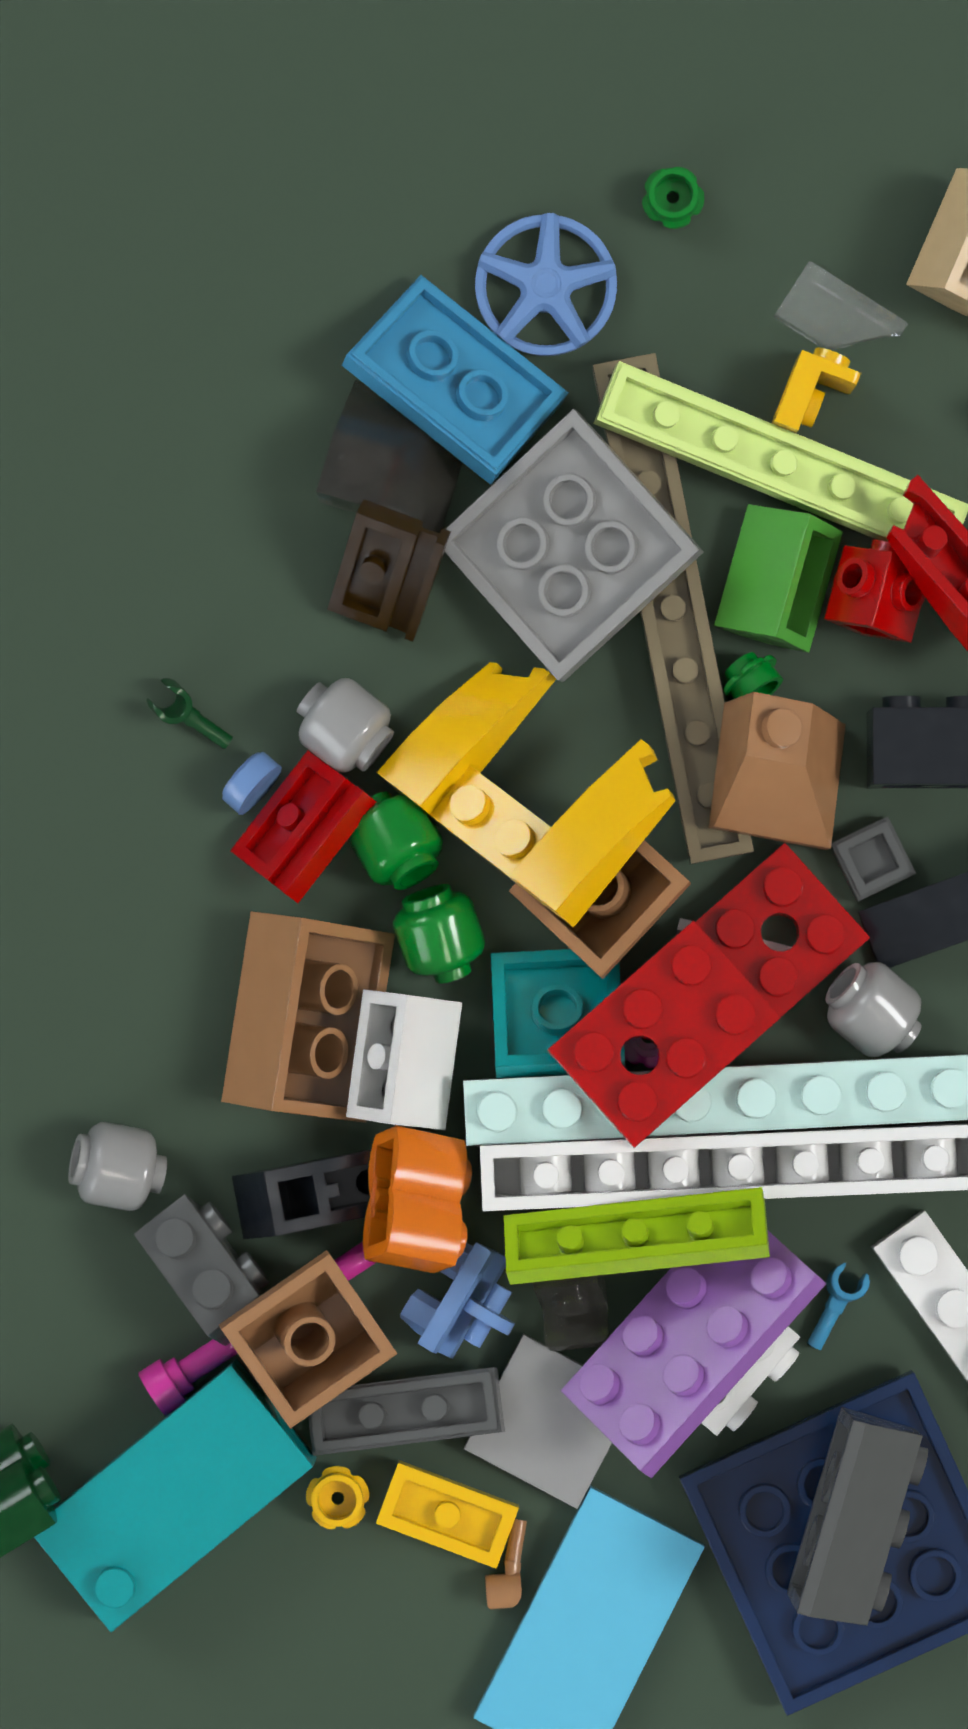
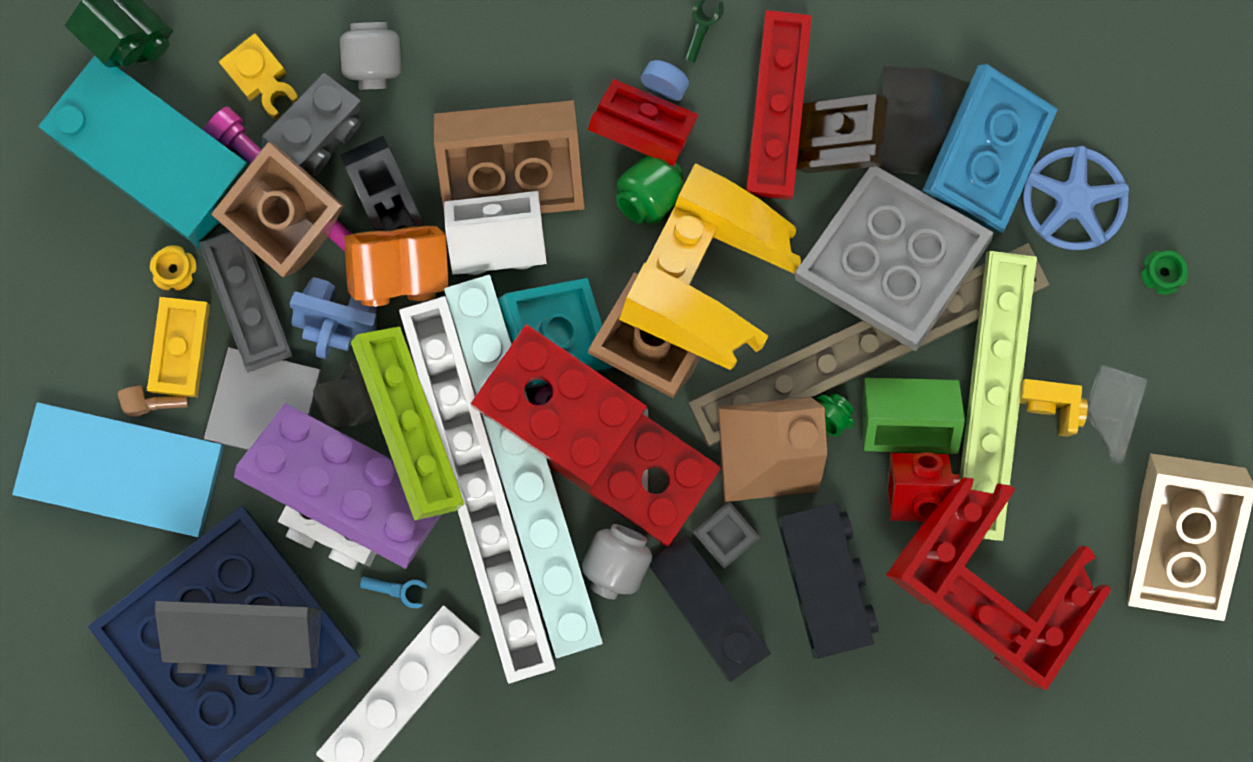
camera: 70 degrees right, 5 degrees down
(96, 1325) = (257, 72): none -> yellow plate
(321, 640) = (778, 105): none -> red plate
(344, 725) = (722, 133): light grey head -> none
(439, 933) = (592, 236): green head -> none

